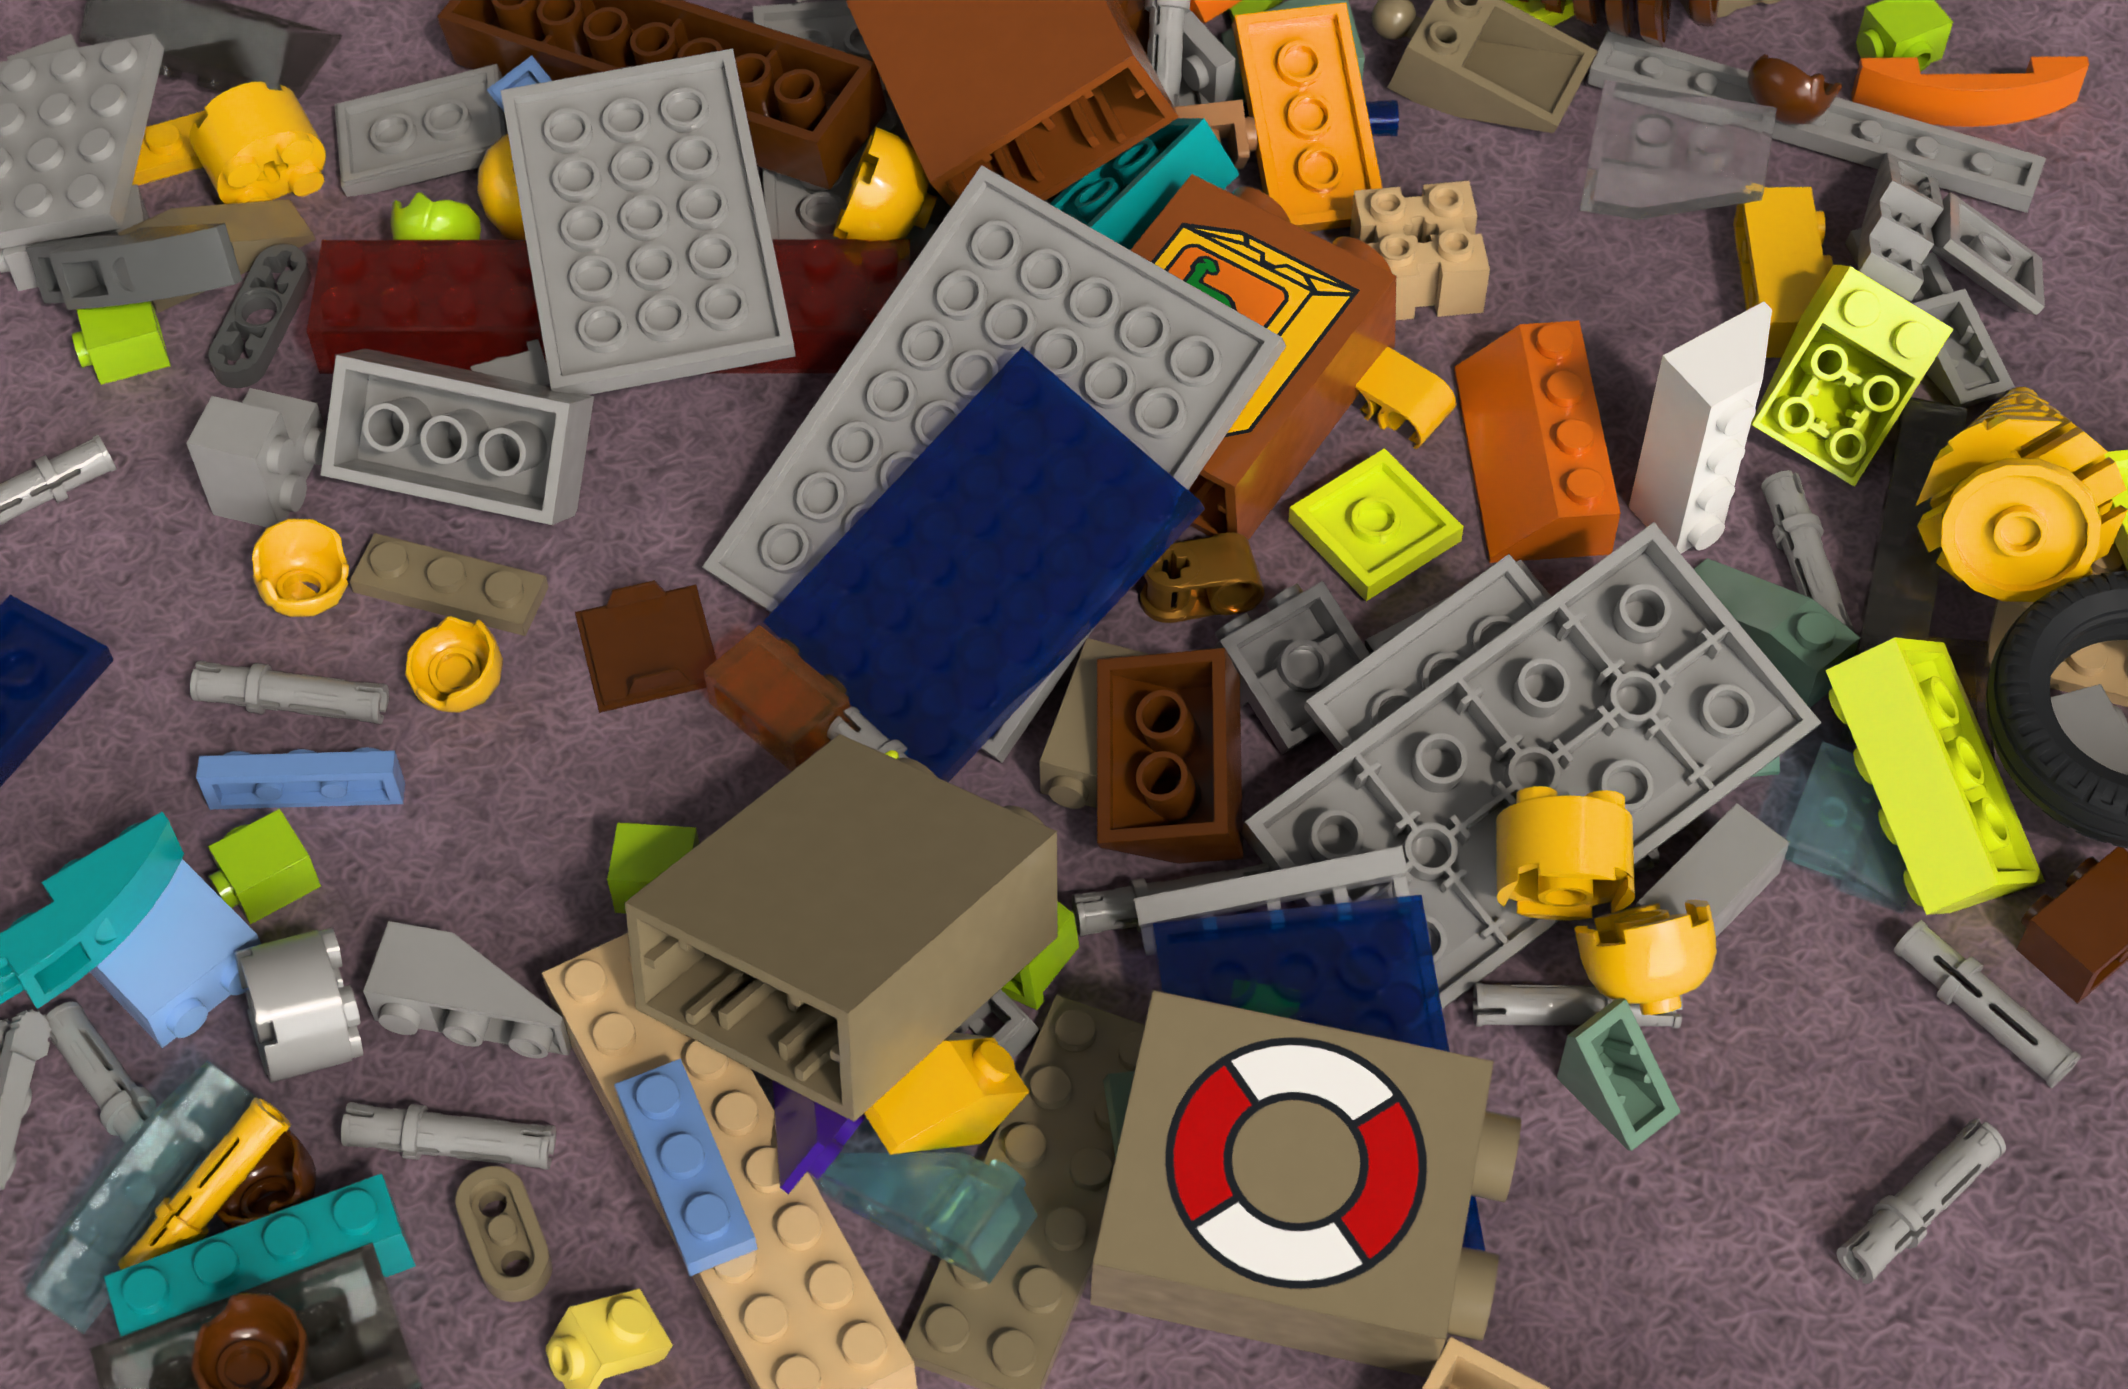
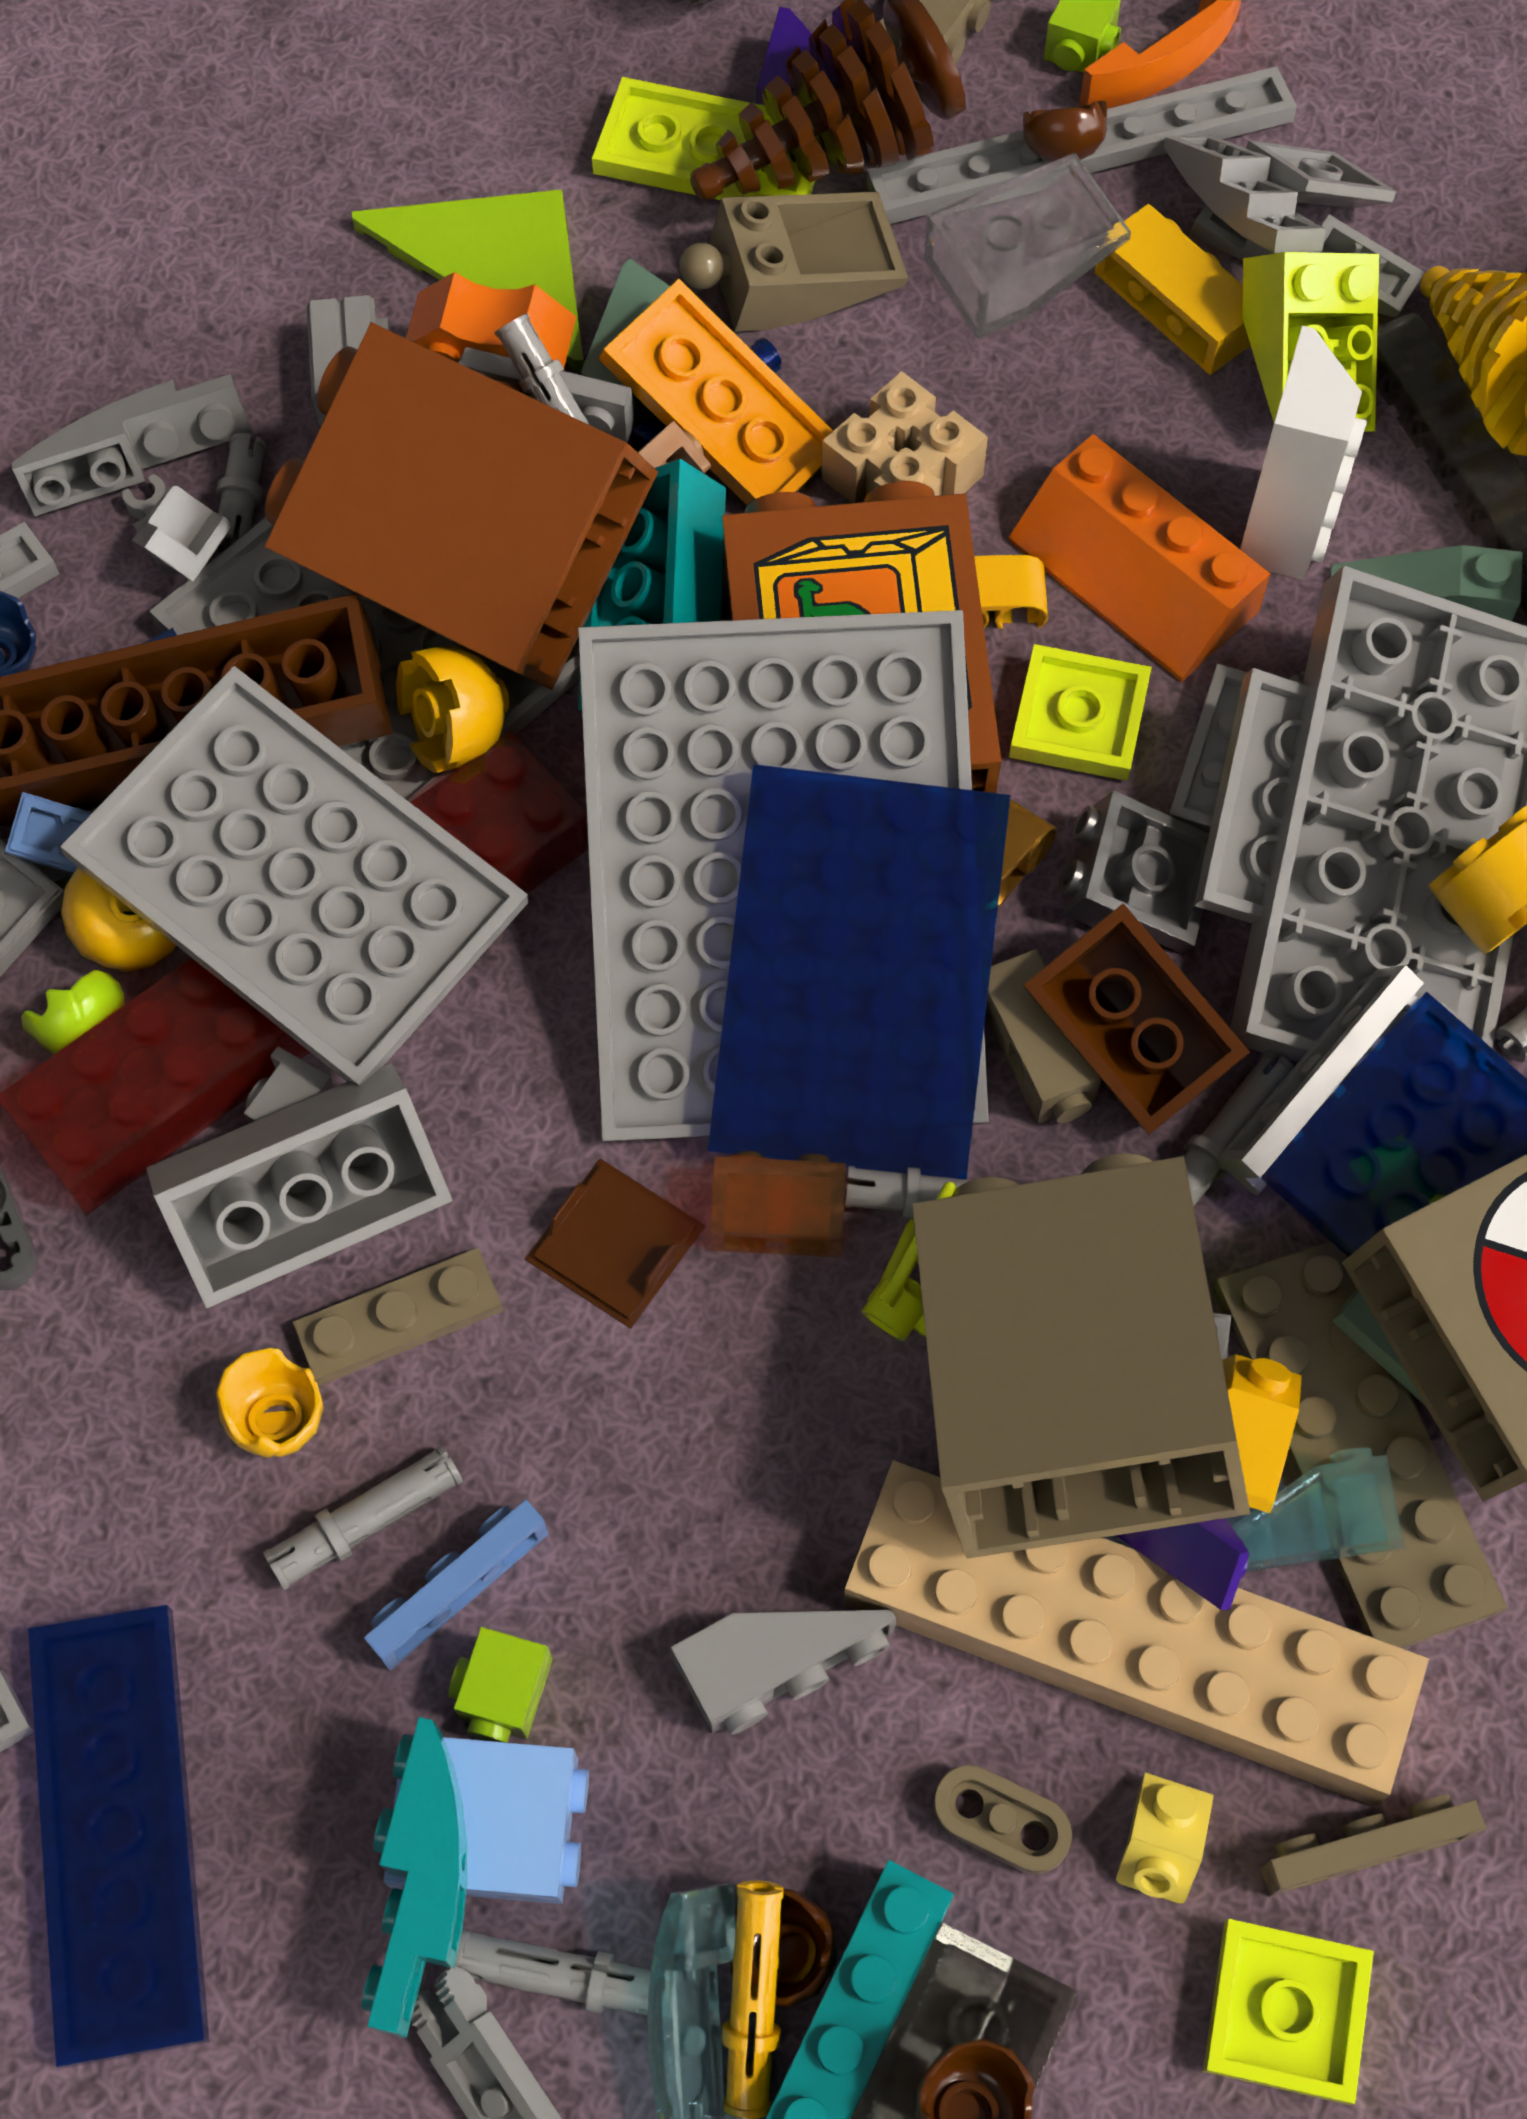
camera: 40 degrees left, 10 degrees up
(257, 455) = (132, 1329): light grey brick -> none
(299, 1004) = (667, 1777): light grey brick -> none
(434, 1134) = (877, 1779): light grey pin -> none
(453, 657) = (475, 1373): yellow hair -> none
(643, 854) = (832, 1425): lime brick -> none
(685, 1167) = (1129, 1653): medium blue plate -> none
(1800, 536) = (1383, 499): light grey pin -> none

